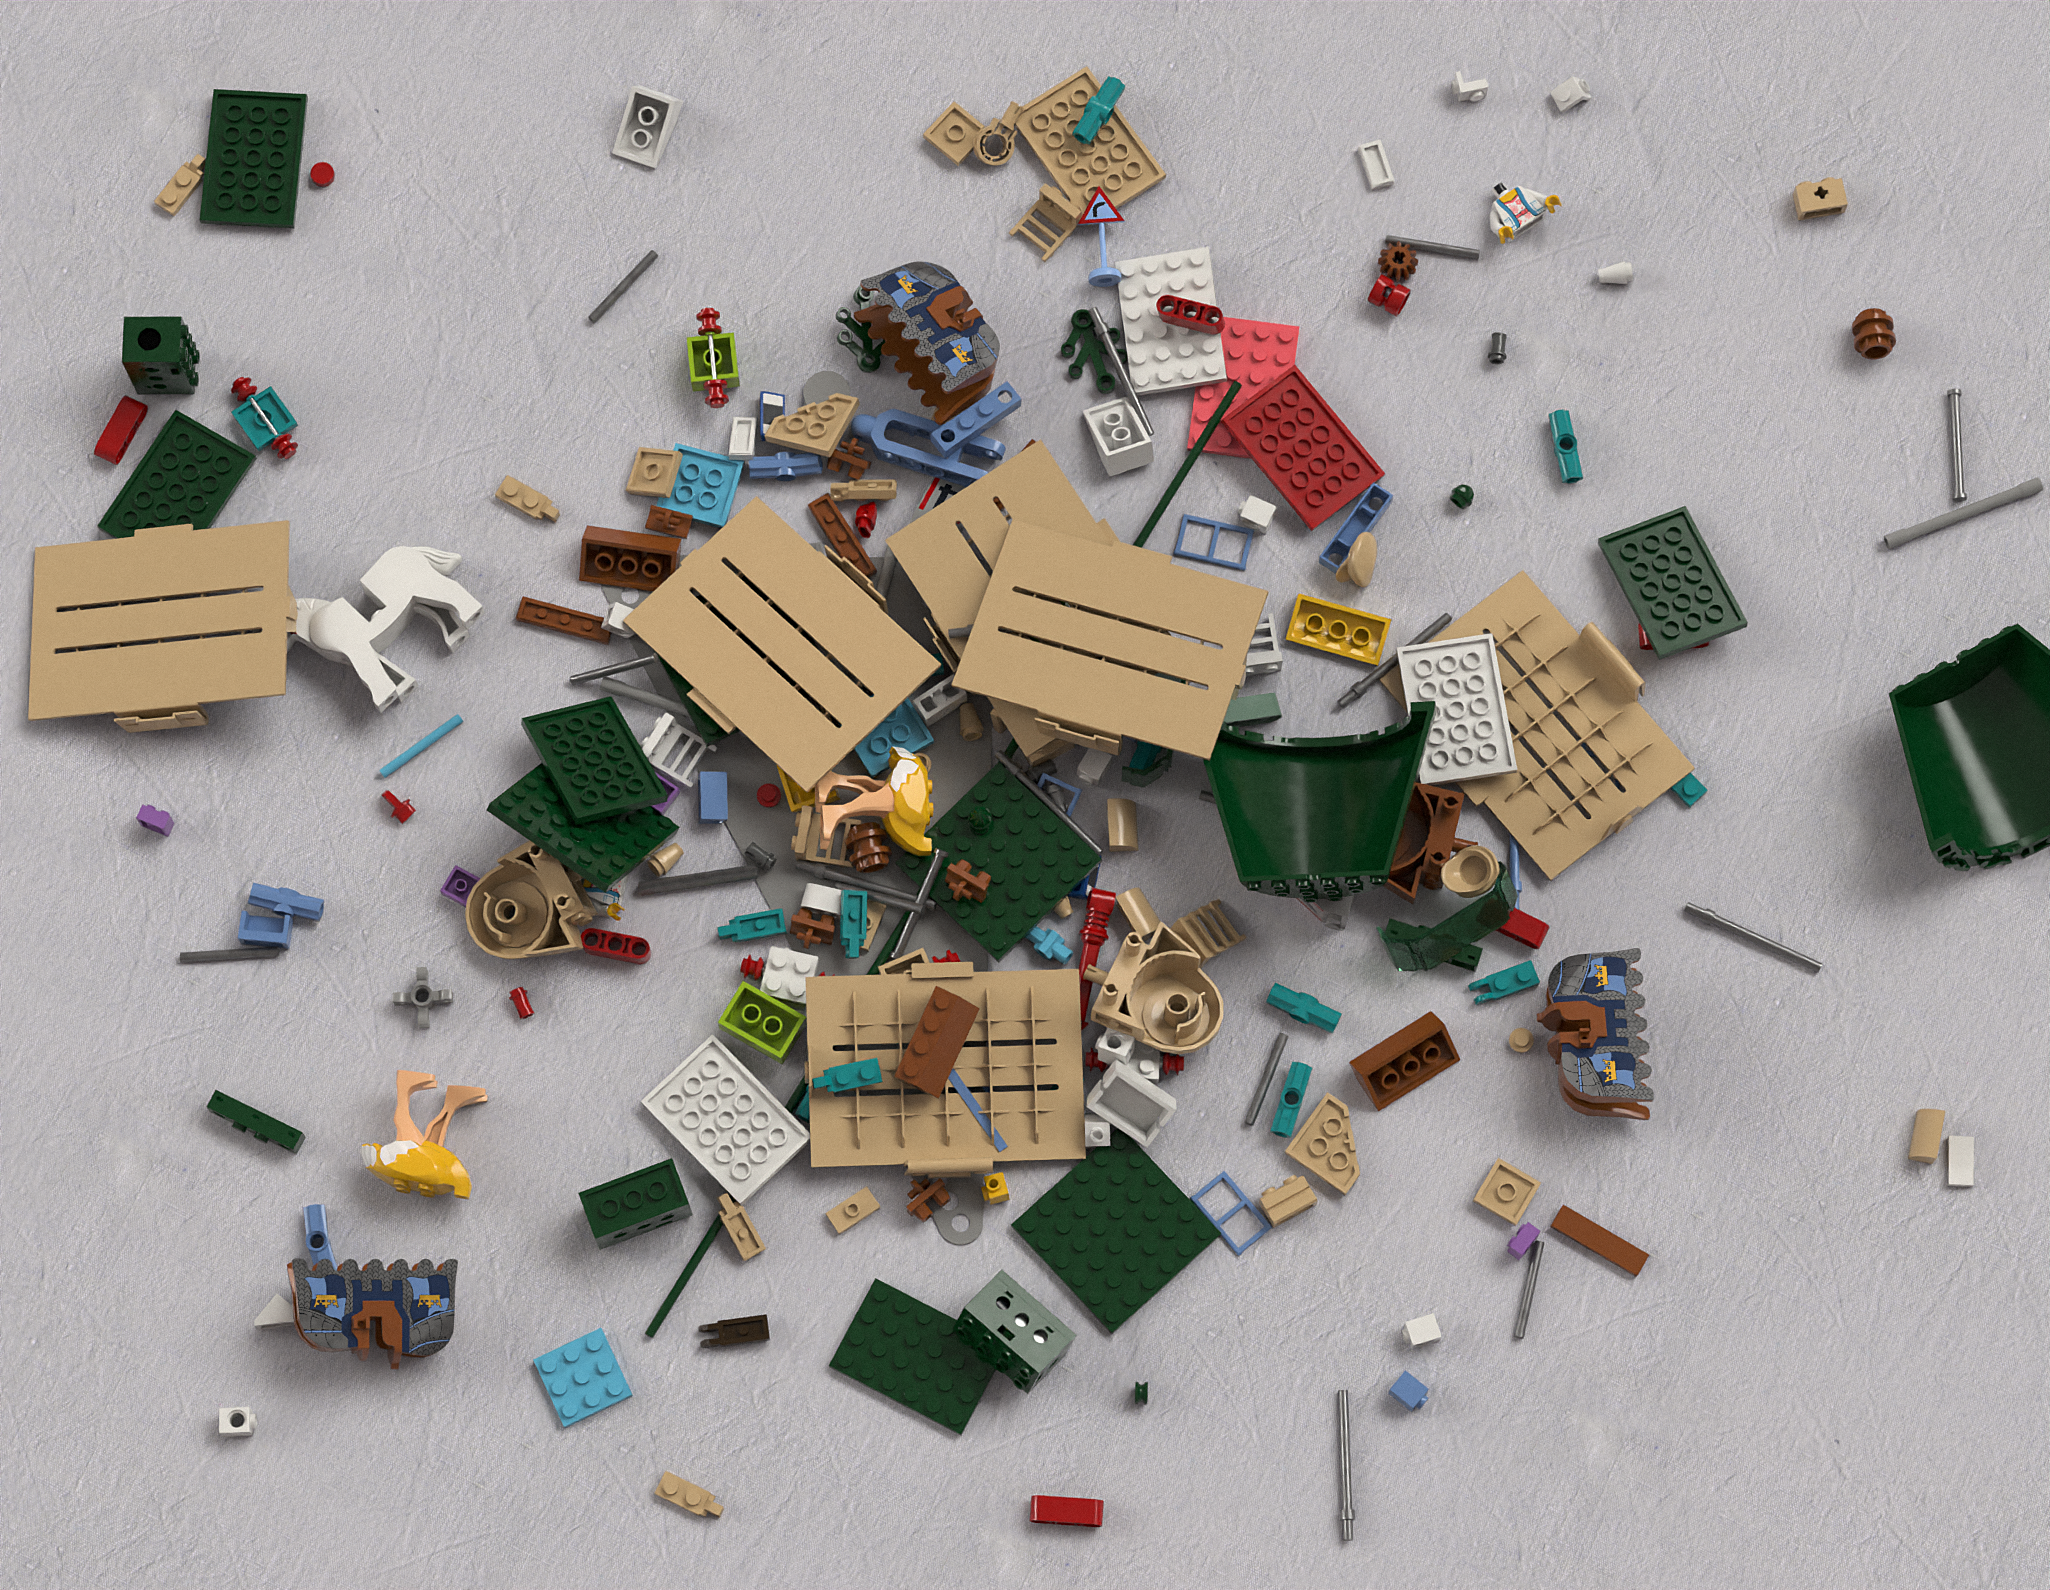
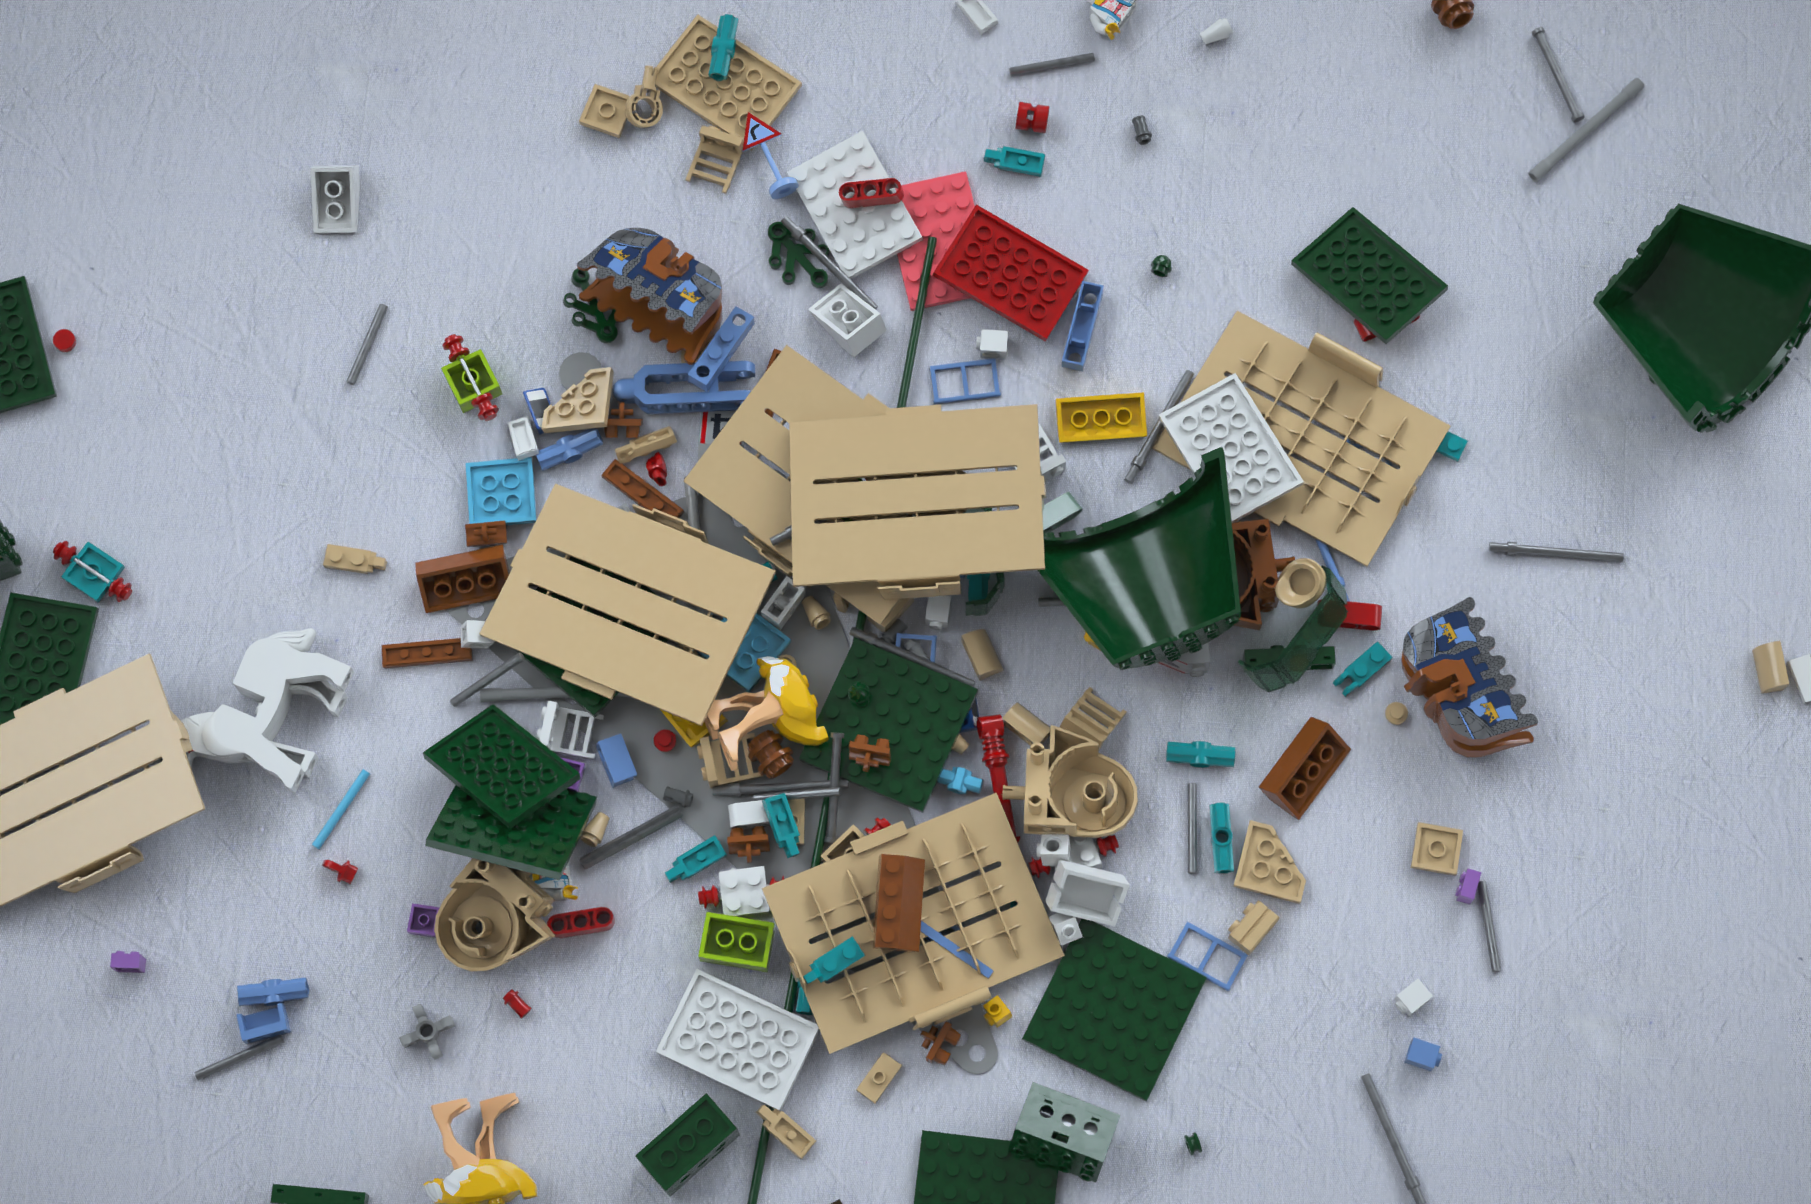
camera: 20 degrees left, 0 degrees up
(654, 472) = (456, 495): tan tile -> none
(1356, 334) = (1016, 160): none -> teal hinge
(1360, 561) = (1098, 352): tan piece -> none
(1400, 253) = (1028, 78): dark orange gear -> none
(1567, 459) = (1238, 203): teal piece -> none
(1599, 1240) = (1531, 861): dark orange tile -> none

